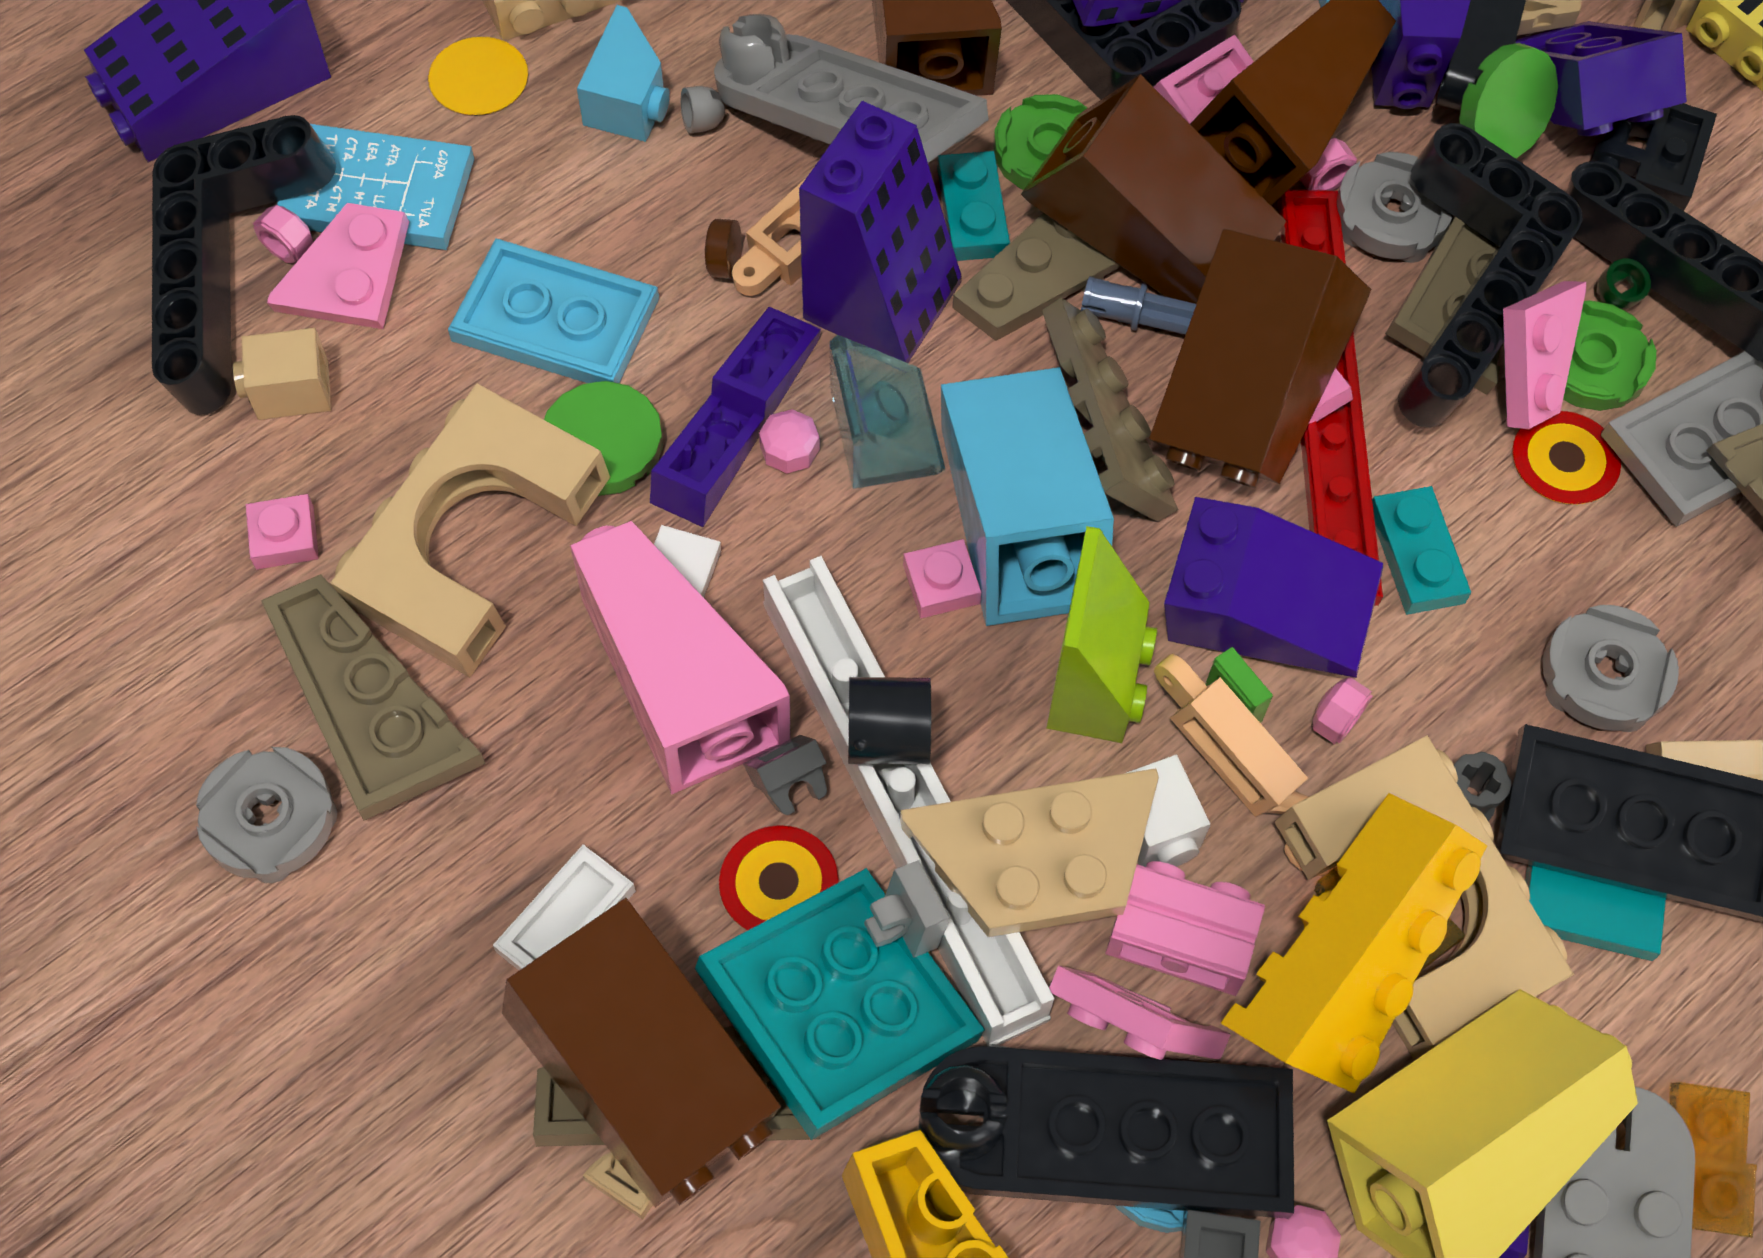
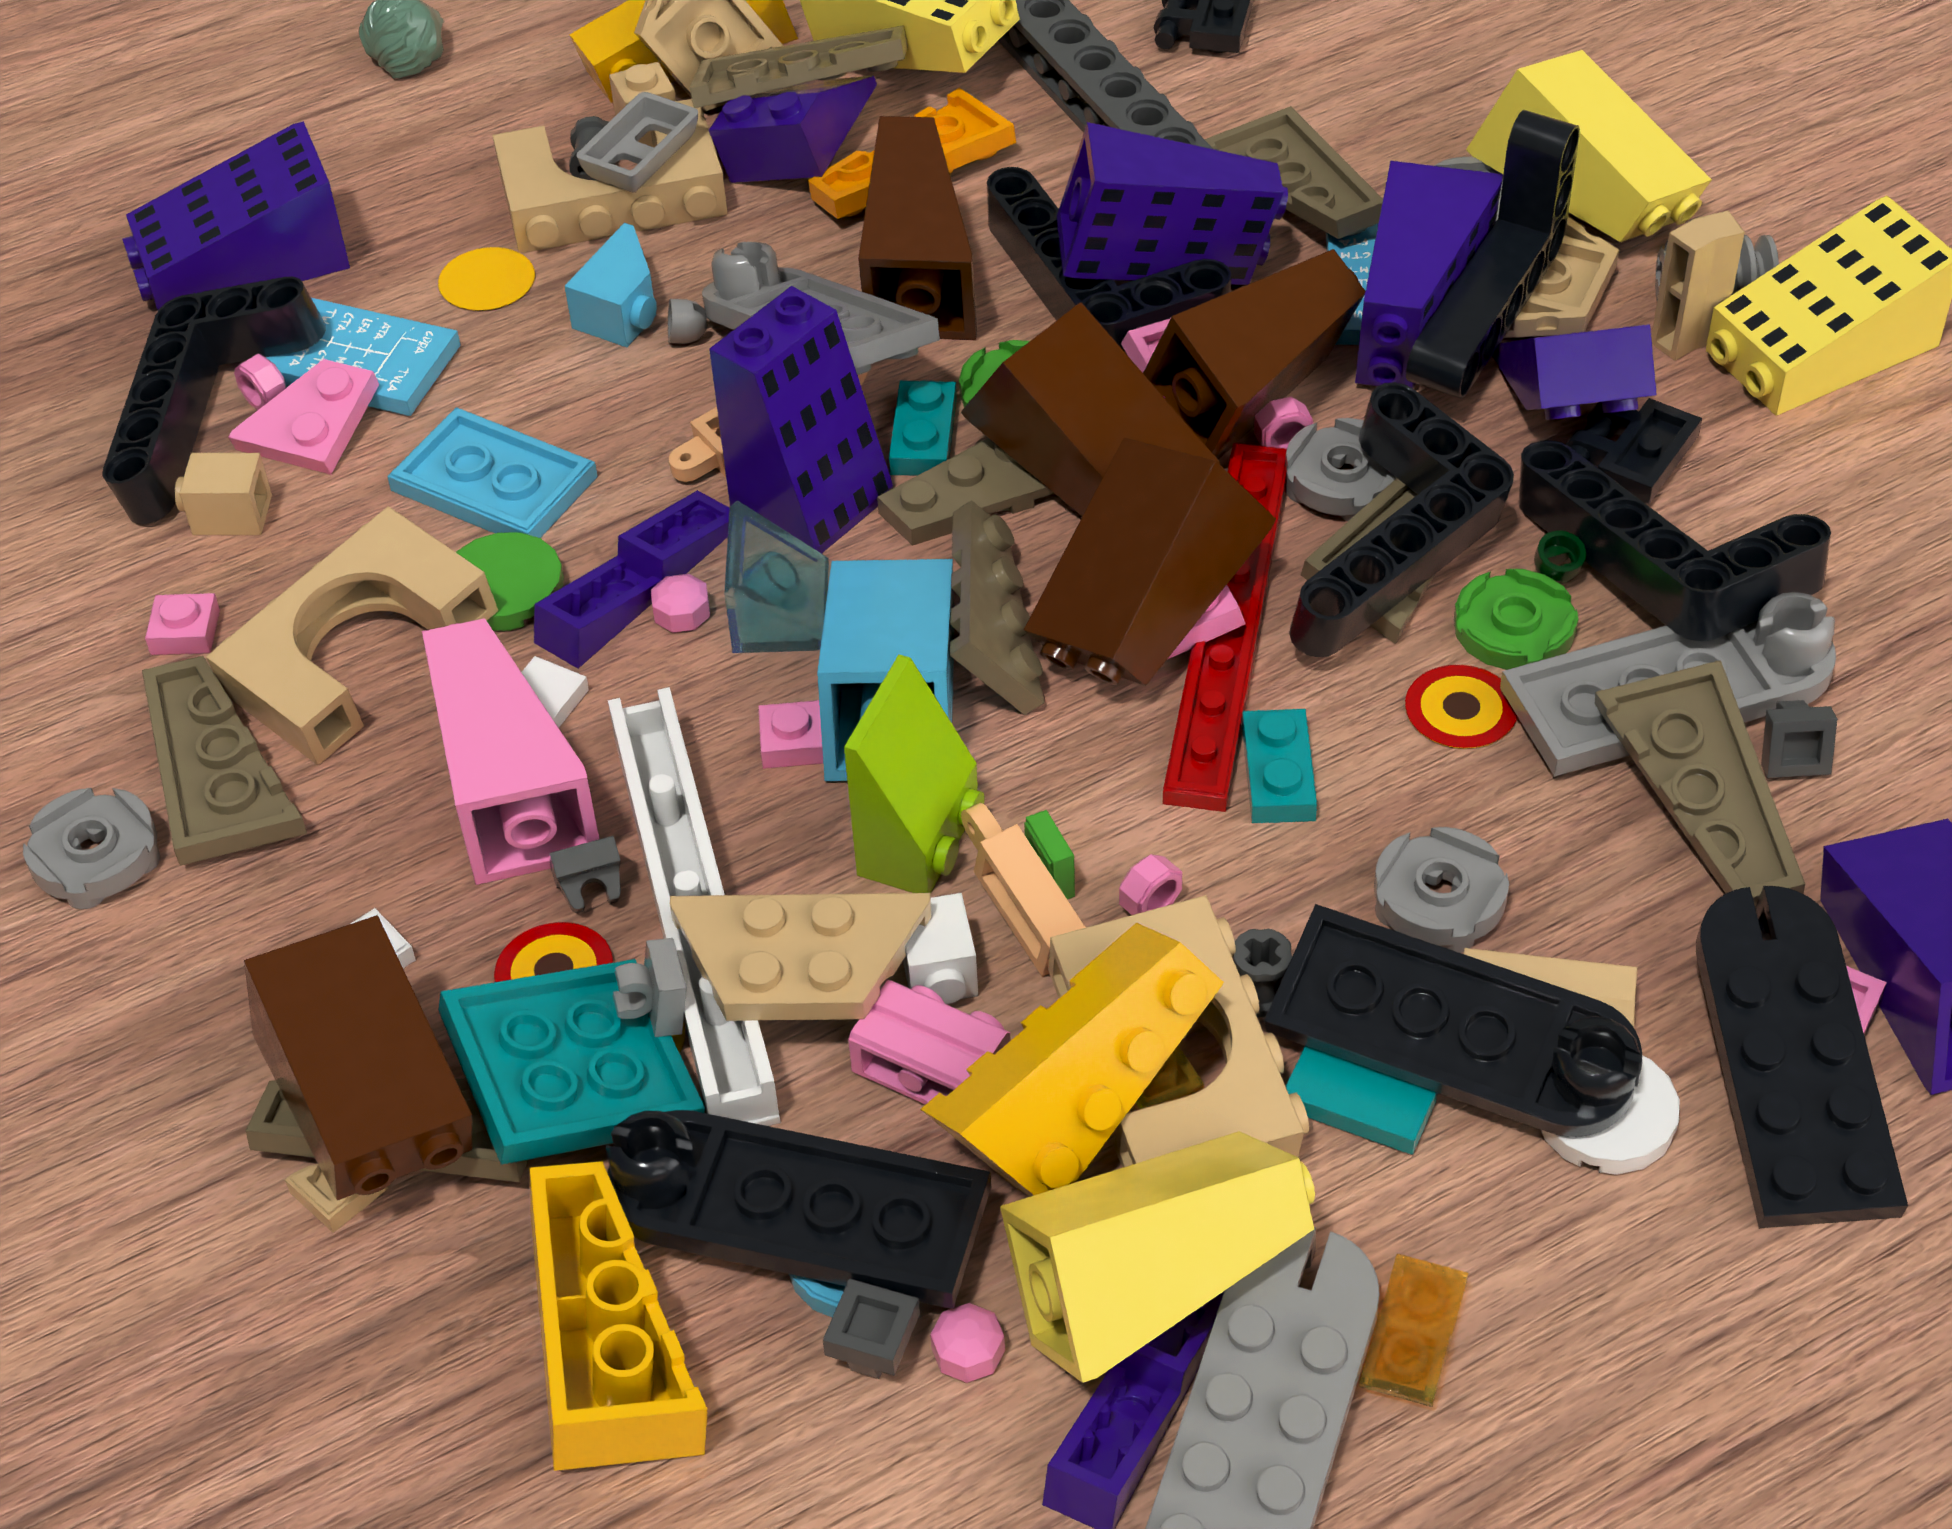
camera: 15 degrees right, 15 degrees down
(722, 247) = (664, 432): reddish brown tile -> none
(889, 720) = (679, 816): black piece -> none
(1136, 306) = (1040, 521): sand blue axle -> none
(1147, 1022) = (855, 1113): bright pink wing -> none
(1270, 590) = (1103, 770): dark purple slope -> none
(1512, 97) = (1472, 374): bright green tile -> none
(1539, 351) = (1441, 597): bright pink wing -> none

